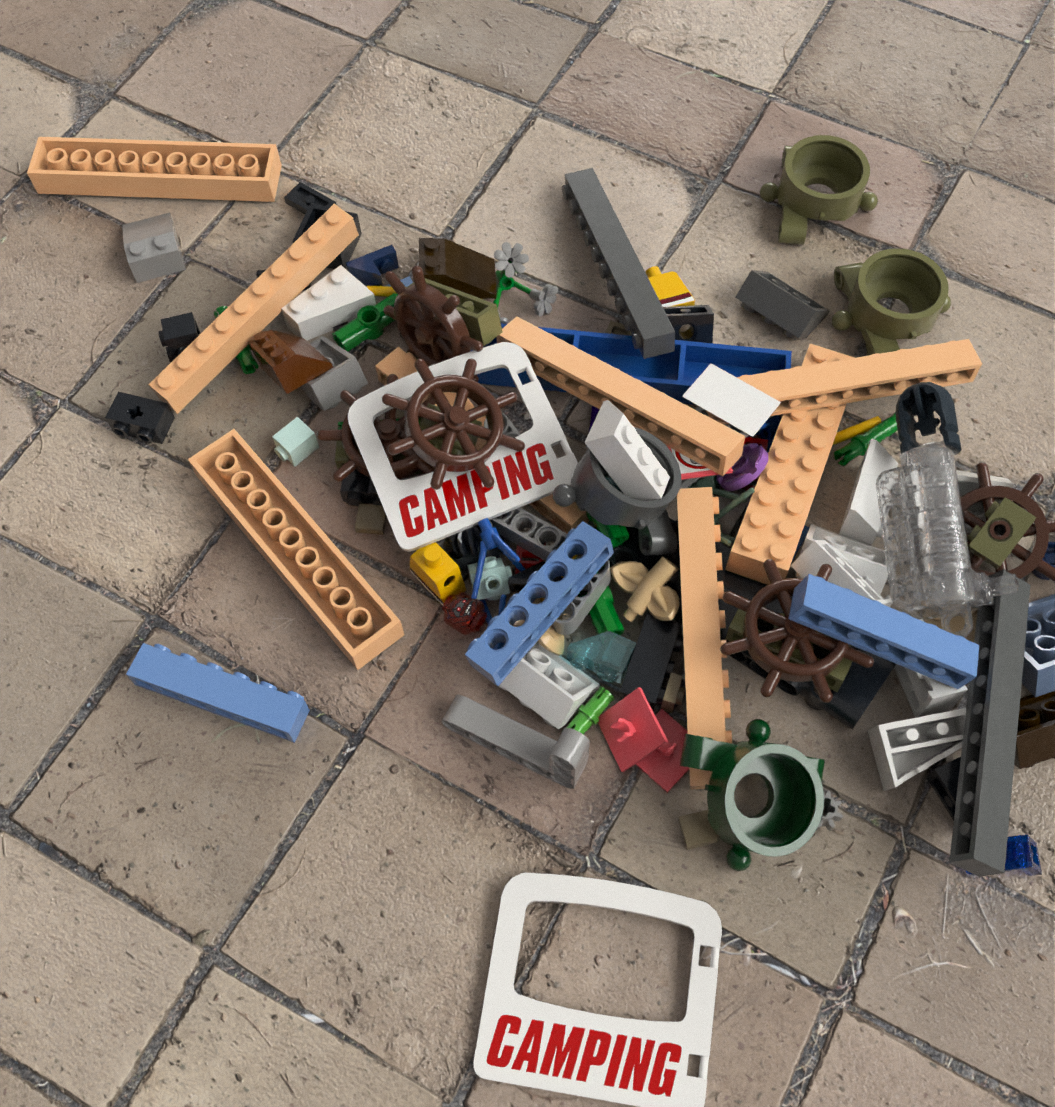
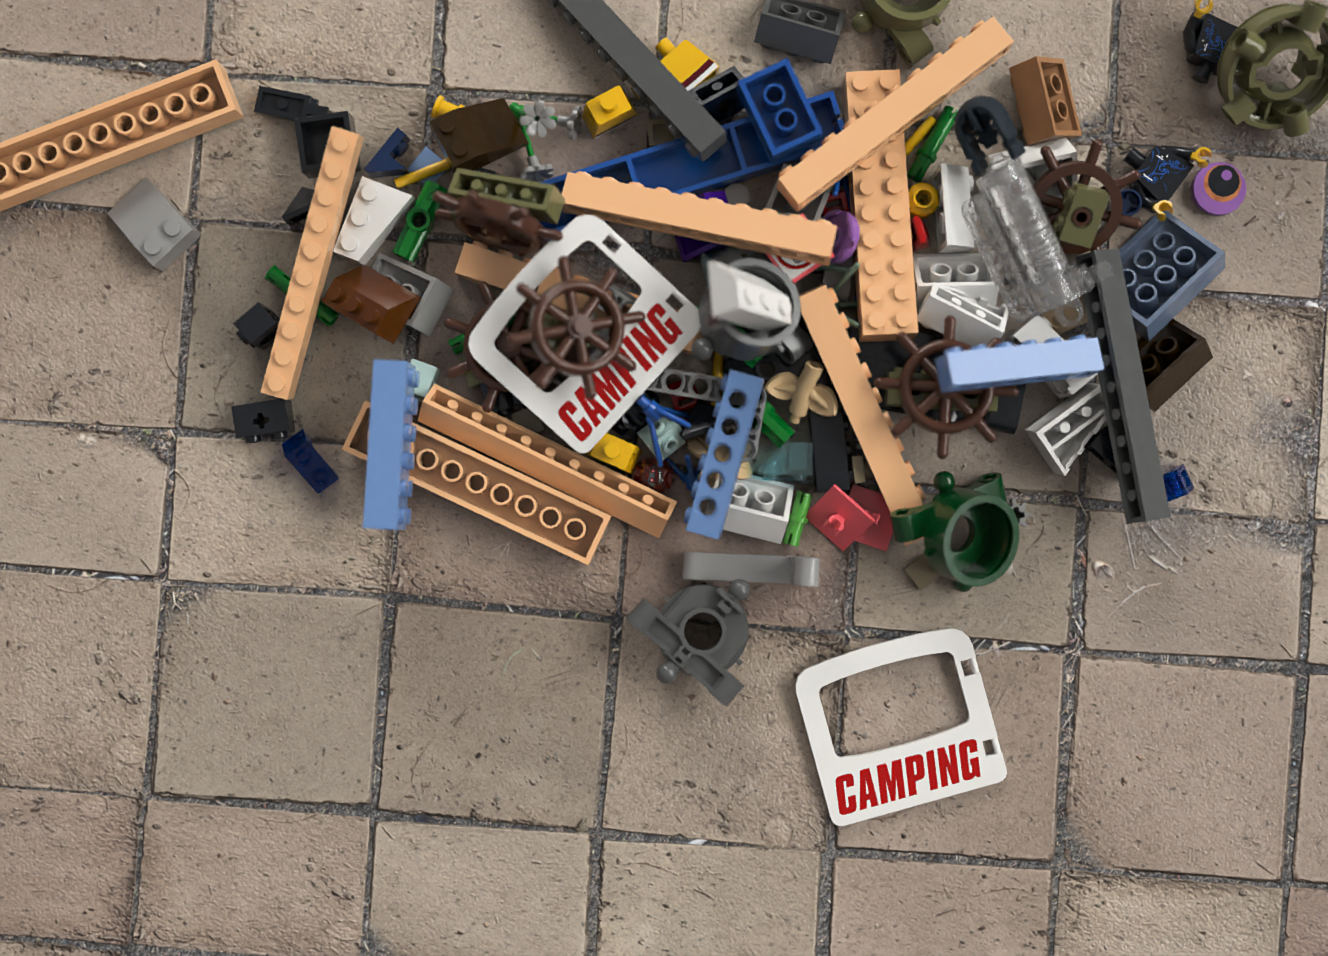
camera: 30 degrees left, 25 degrees up
(155, 470) = (308, 461): none -> clear blue bracket
(219, 691) = (486, 637): medium blue brick -> none
(227, 463) = (390, 445): none -> medium blue brick
(373, 557) = (546, 460): none -> light nougat brick
(424, 813) = (707, 665): none -> dark grey piece
(580, 300) = (608, 111): none -> yellow torso
(731, 399) = (808, 188): white sticker -> none
(733, 334) = (779, 110): none -> blue brick
(825, 502) = (919, 234): none -> red slope
(839, 476) = (929, 200): none -> yellow head
(996, 438) = (1044, 100): none -> medium nougat slope

